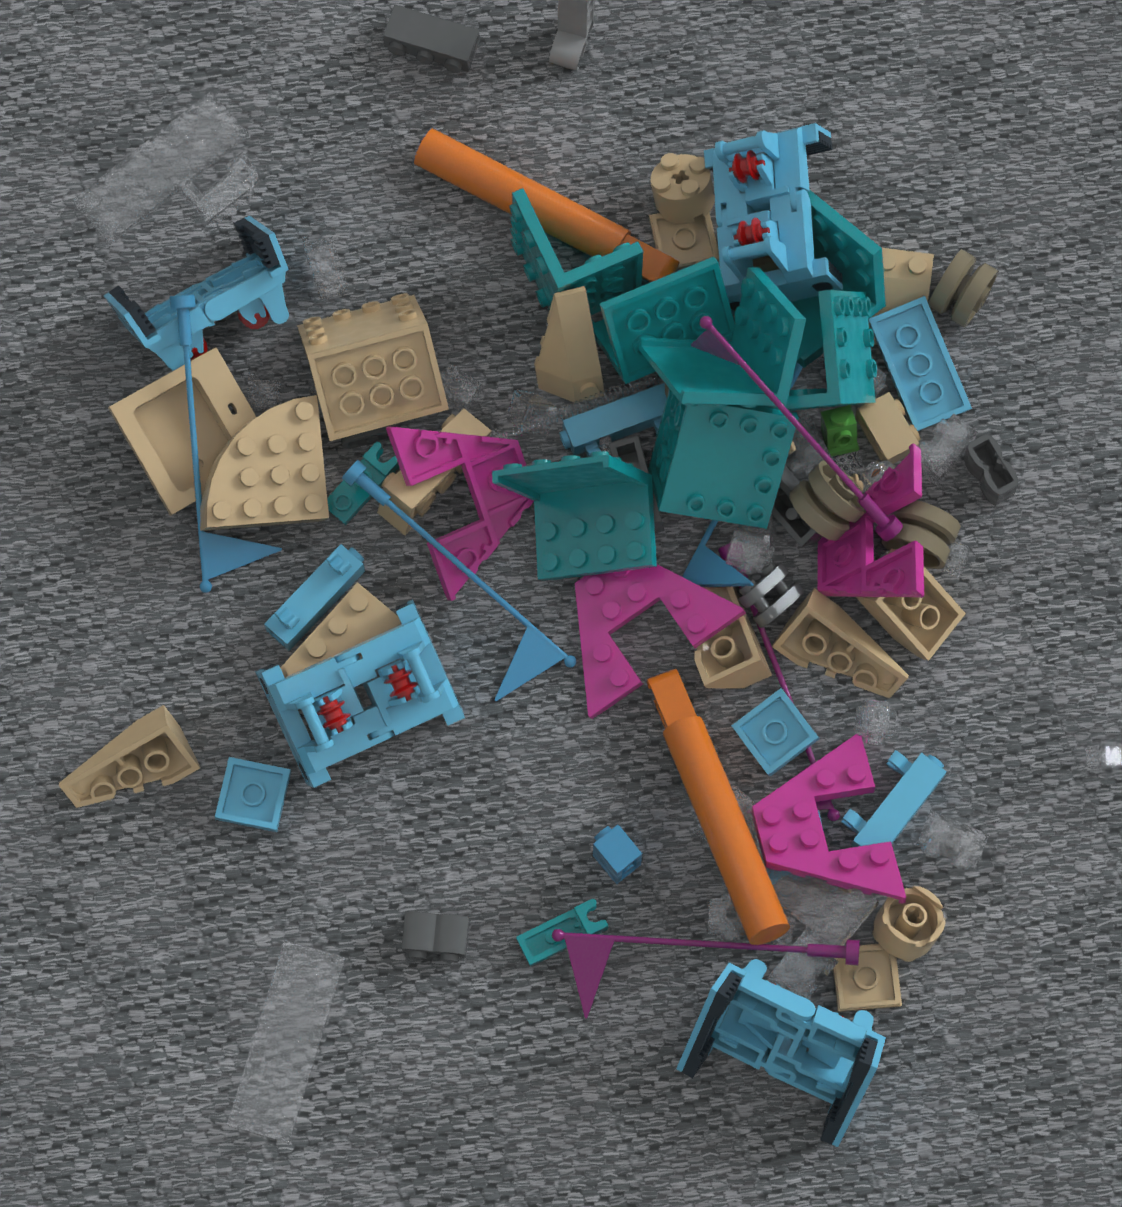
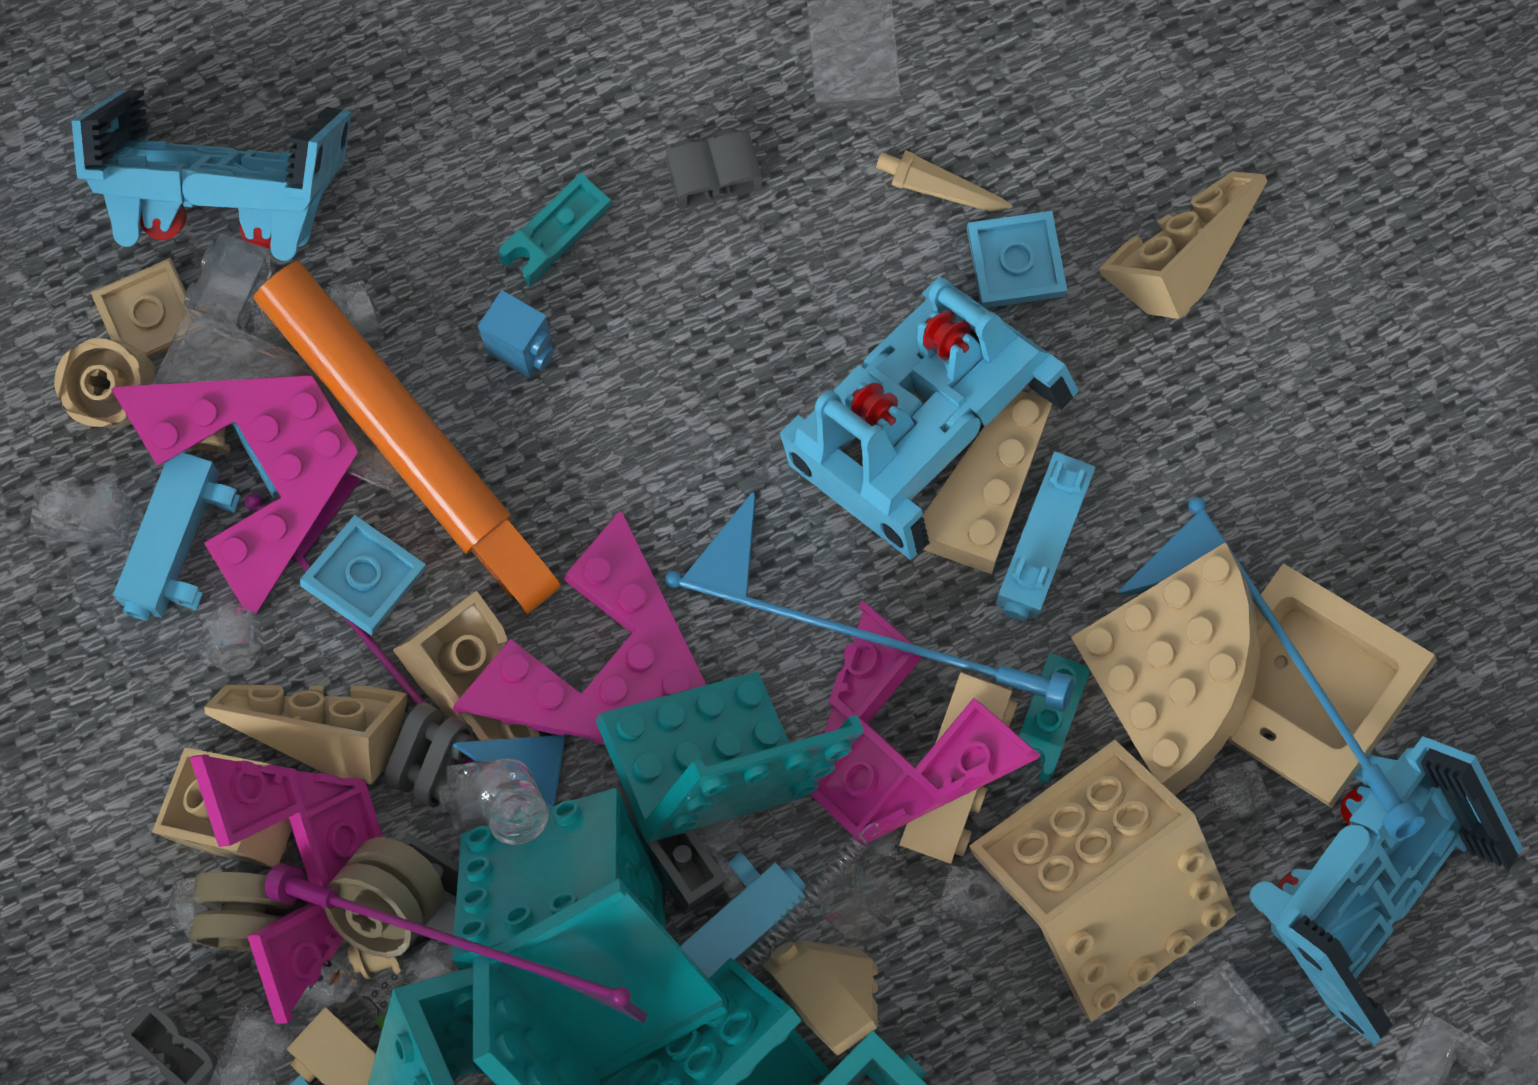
camera: 160 degrees right, 0 degrees up
(286, 876) = (924, 177): none -> tan bar
(591, 952) = (505, 208): magenta piece -> none
(729, 518) = (511, 801): none -> clear wheel

